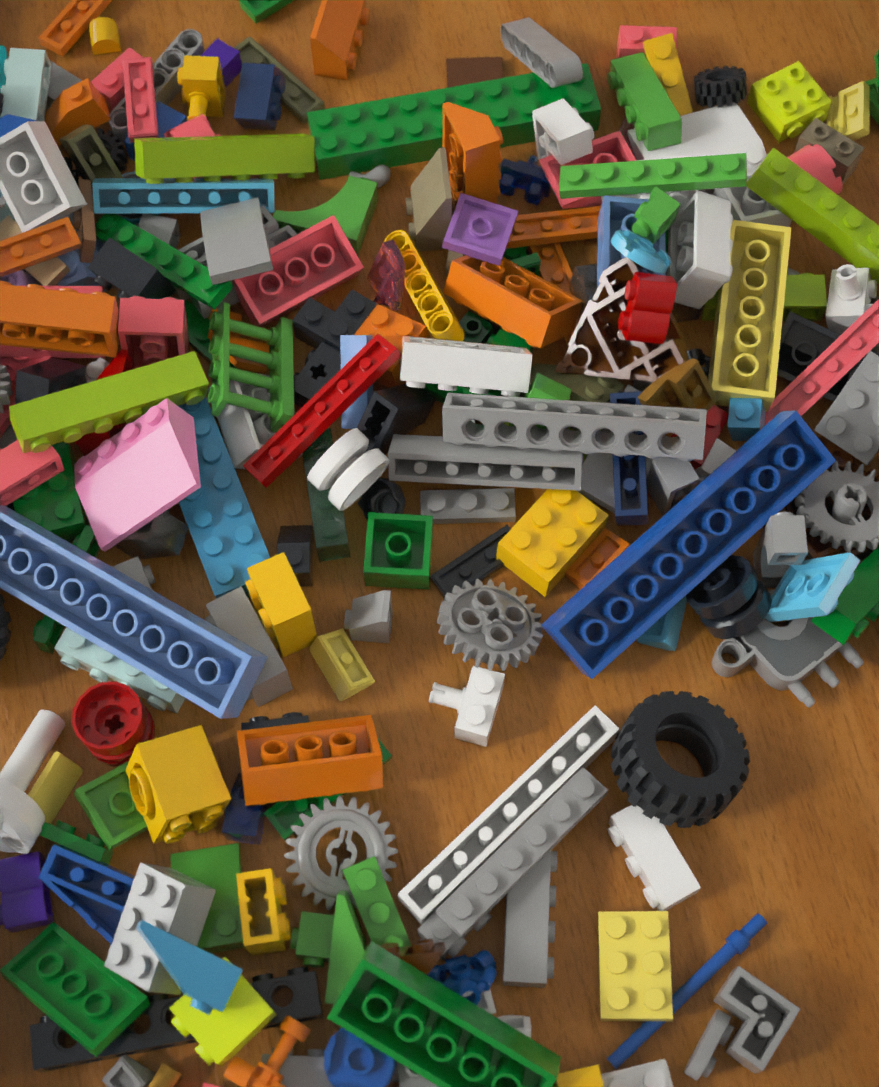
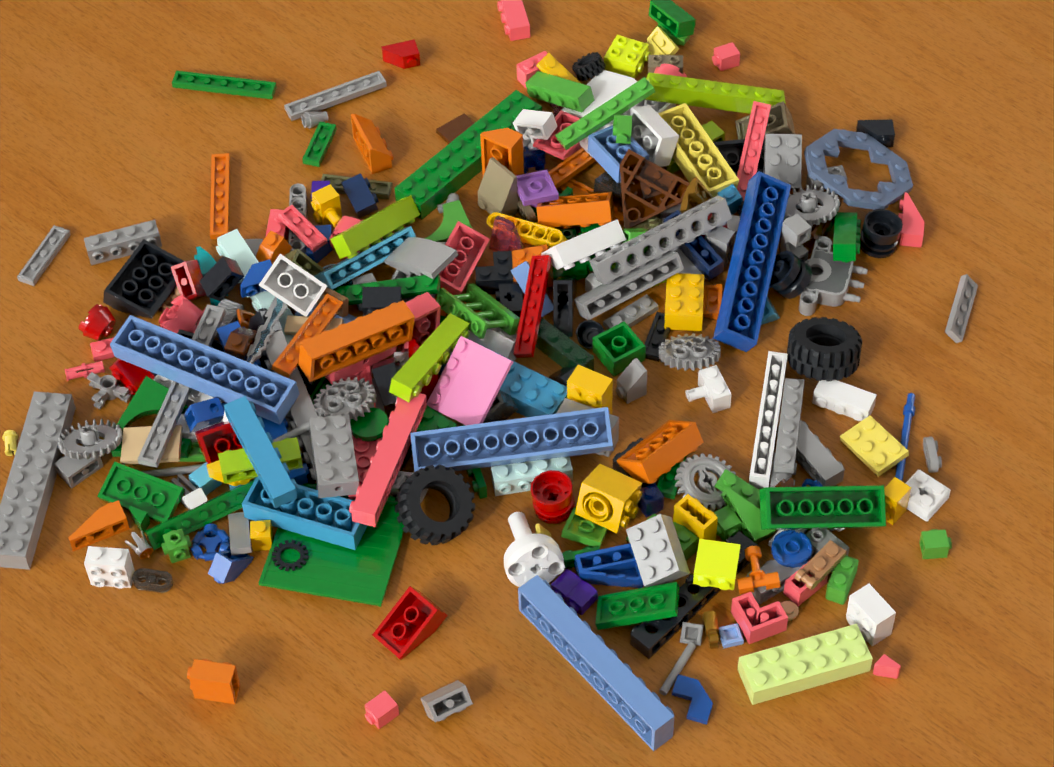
camera: 35 degrees left, 15 degrees down
(104, 36) = (243, 216): yellow brick -> none
(195, 971) = (691, 542): dark azure slope -> none
(341, 664) = (633, 415): light yellow slope -> none
(348, 469) = (567, 318): white wheel -> none
(541, 52) = (489, 96): light grey beam -> none
(640, 251) = (631, 145): medium azure tile -> none
(648, 307) = (655, 168): red brick -> none
(764, 1018) = (942, 426): light grey brick -> none
(812, 587) = (823, 242): medium azure plate -> none
(848, 296) = (731, 122): white brick -> none

